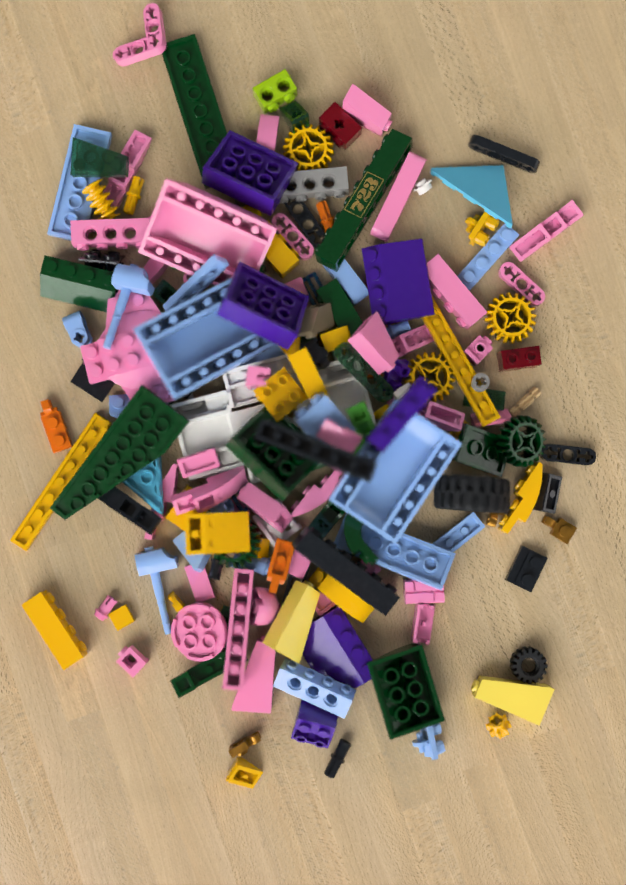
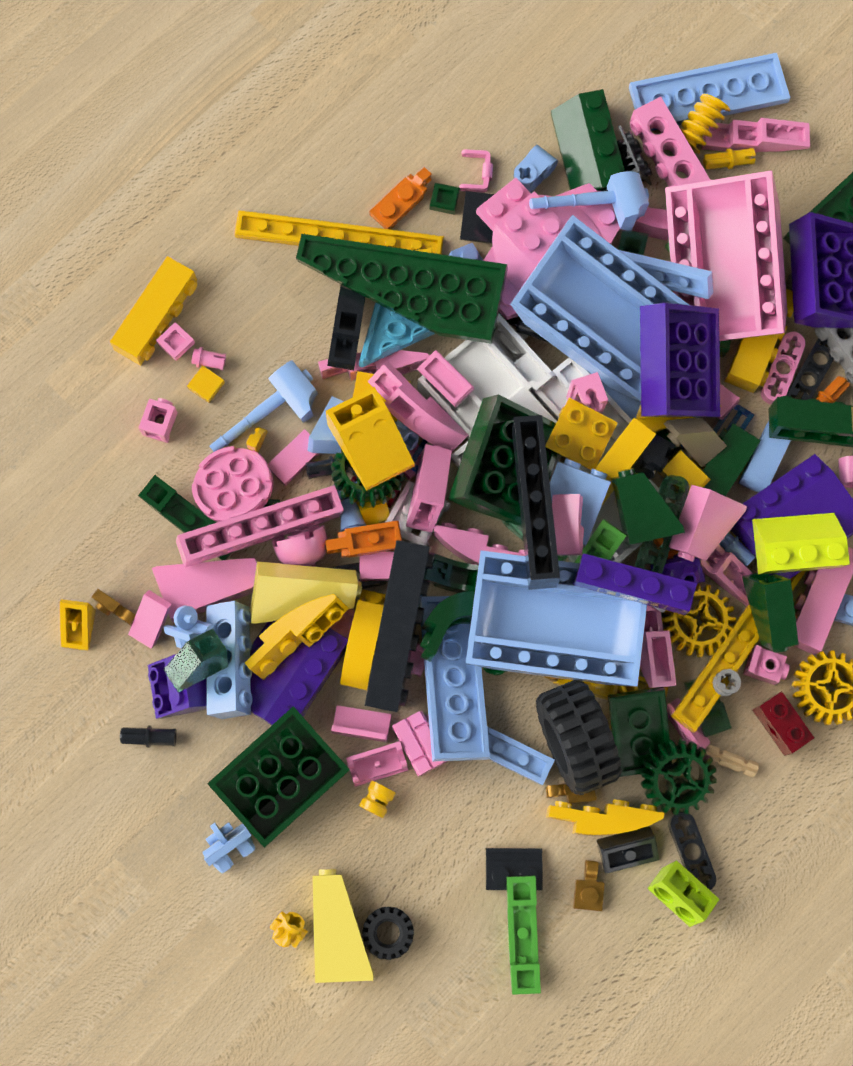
camera: 70 degrees right, 10 degrees down
(63, 360) = (486, 172): none -> bright pink piece
(68, 398) = (444, 198): none -> dark green tile
(83, 625) = (175, 341): none -> bright pink tile
(96, 161) = (747, 96): clear green wing -> none
(264, 725) = (150, 619): none -> bright pink tile
(285, 705) = (186, 625): none -> light blue hips
(310, 712) = (197, 660): none -> slope
(316, 633) = (300, 625): none -> yellow slope
(351, 382) = (642, 509): none -> dark green slope
(393, 622) = (361, 723): none -> bright pink panel
(417, 291) = (799, 543): none -> neon yellow slope
(445, 633) = (378, 792): none -> yellow wheel
(448, 329) = (772, 610): none -> dark green slope
(569, 583) = (523, 935): none -> bright green slope
(592, 474) = (683, 894): none -> lime brick

